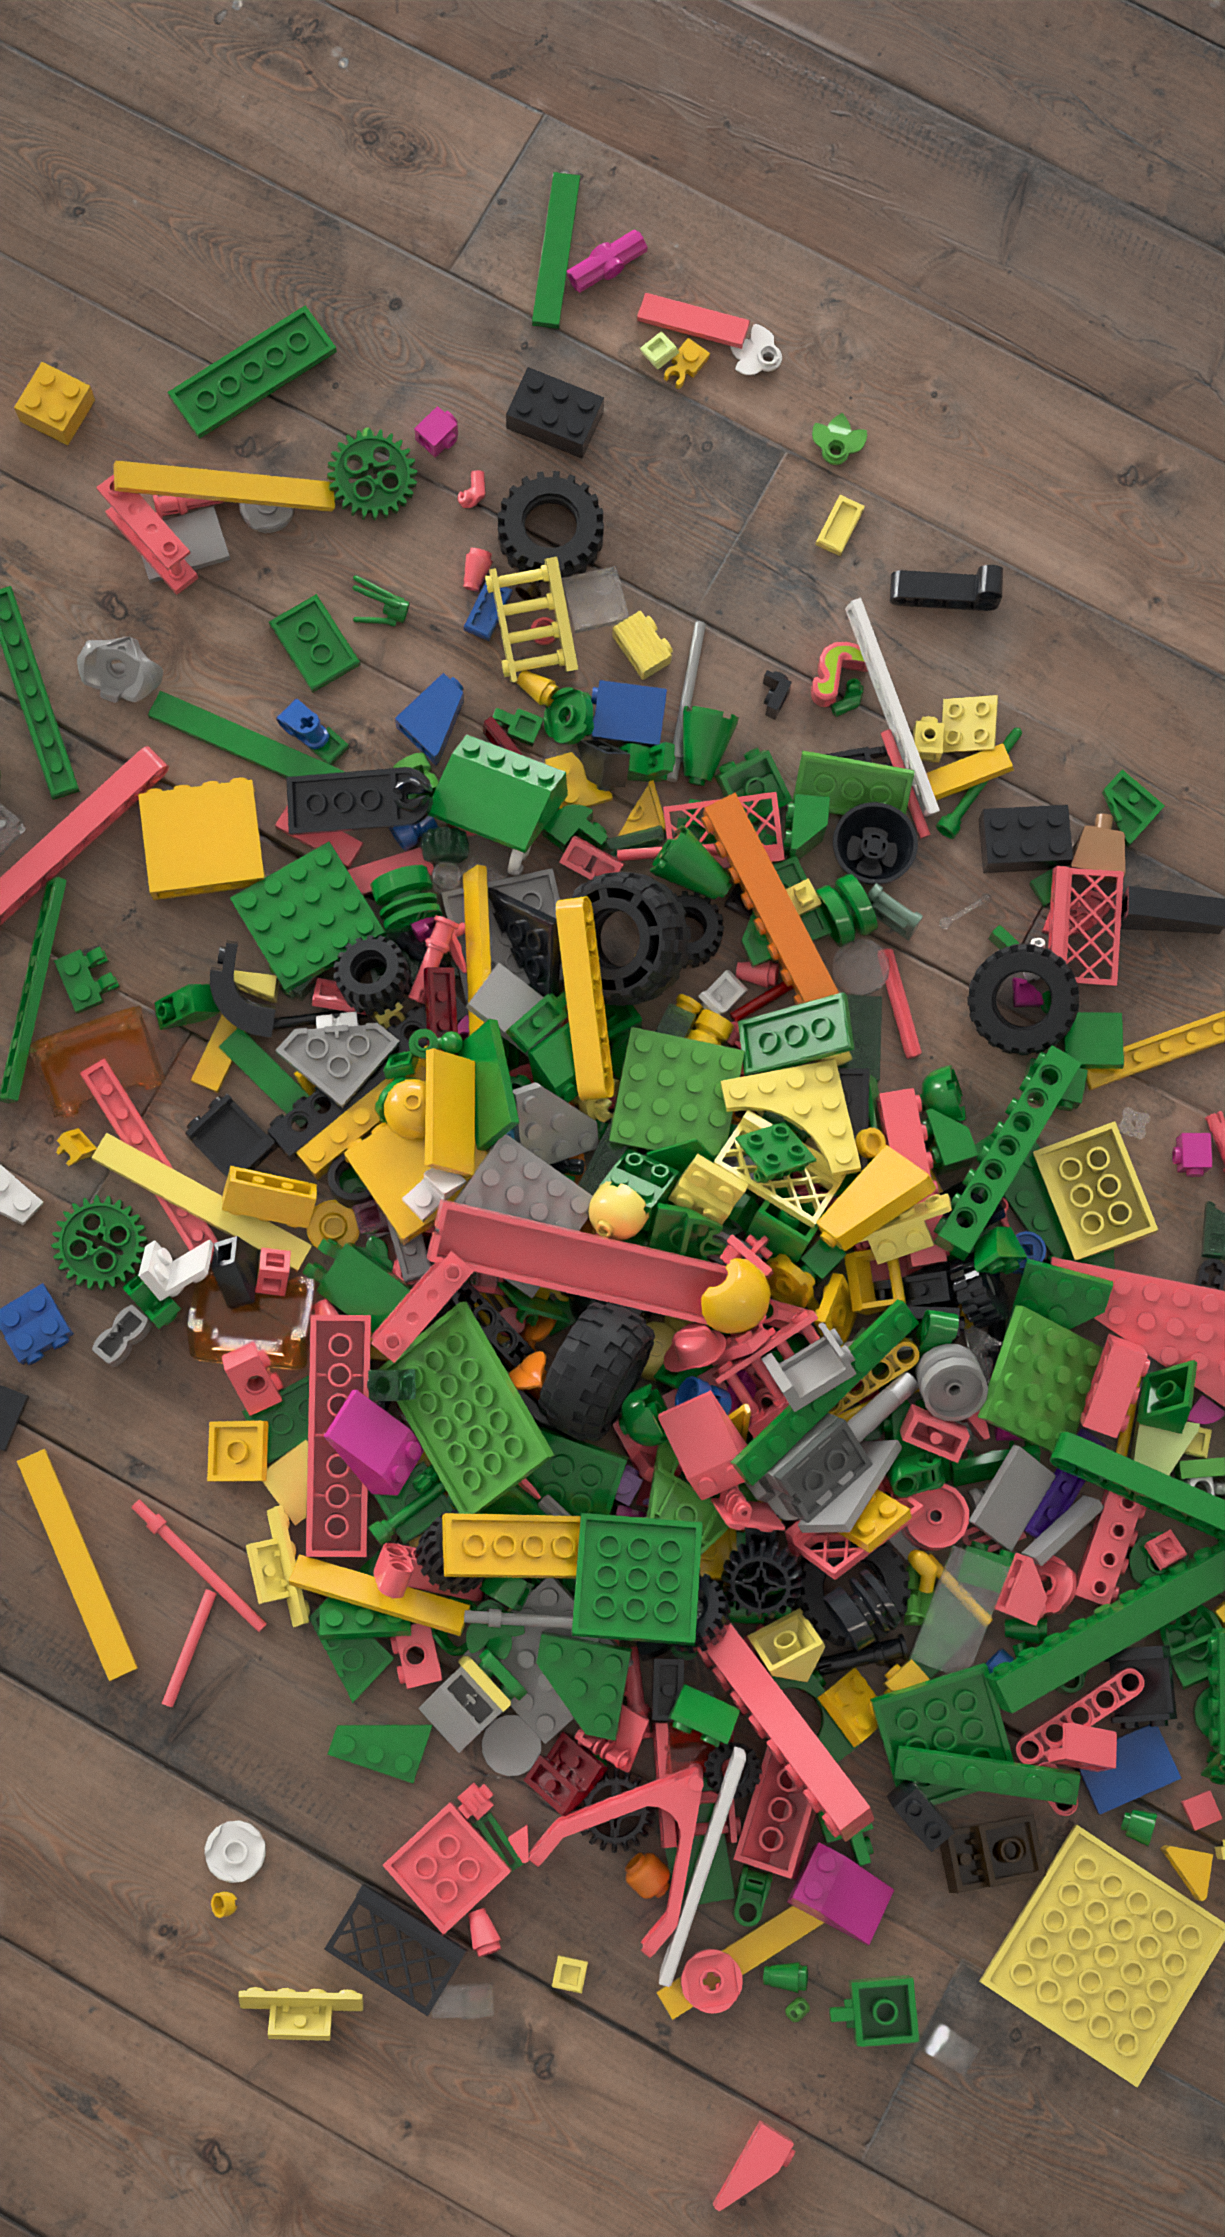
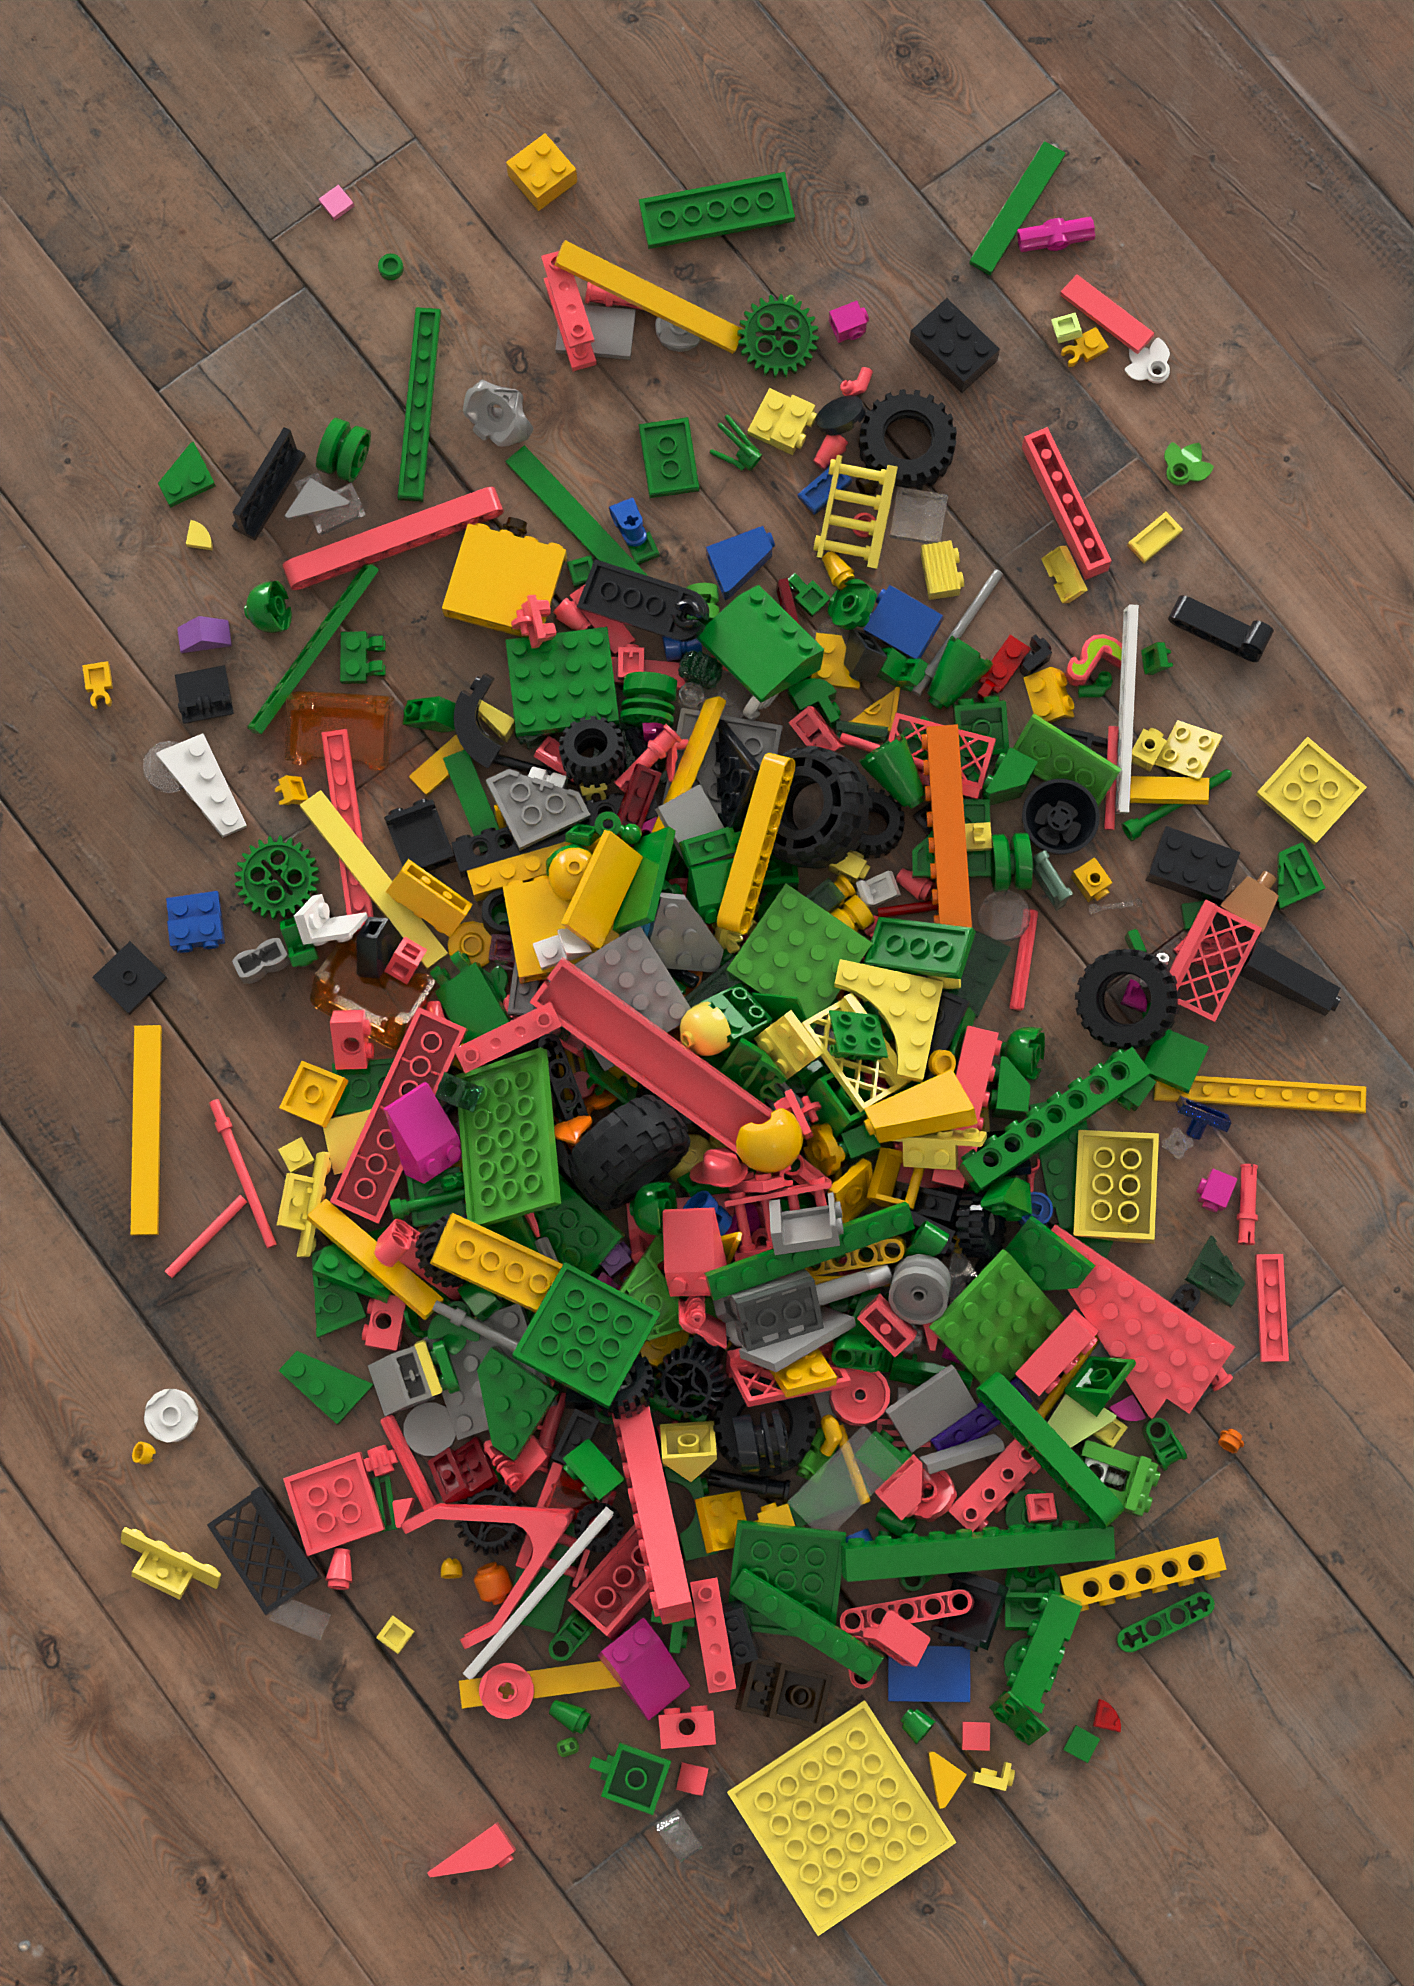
camera: 30 degrees right, 0 degrees up
(188, 776) = (516, 526): none -> dark brown plate
(246, 1522) = (296, 1155): none -> light yellow plate
(250, 868) = (530, 621): none -> coral hips
(274, 795) = (579, 570): none -> green tile
(286, 845) = (571, 615): none -> coral cone
(368, 866) = (630, 660): none -> coral bracket
(414, 559) = (782, 421): none -> light yellow plate
(472, 529) = (840, 415): none -> black tile
(505, 1790) = (408, 1462): none -> coral axle
(597, 1880) = (451, 1569): none -> yellow hinge
(689, 983) = (852, 867): none -> light yellow brick
(738, 526) = (1066, 503): none -> coral brick
(749, 710) = (1004, 667): none -> red hinge
(763, 592) = (1062, 567): none -> light yellow piece
(806, 726) = (1049, 694): none -> yellow bracket
(895, 646) = (1155, 658): none -> green tile
(900, 1830) = (713, 1635): none -> coral fence
(929, 1935) = (672, 1736): none -> coral brick
(932, 895) = (1092, 880): none -> yellow brick
(939, 1984) = (692, 1779): none -> coral slope
(1107, 714) = (1311, 790): none -> light yellow plate
(1146, 1085) = (1201, 1117): none -> clear blue tile

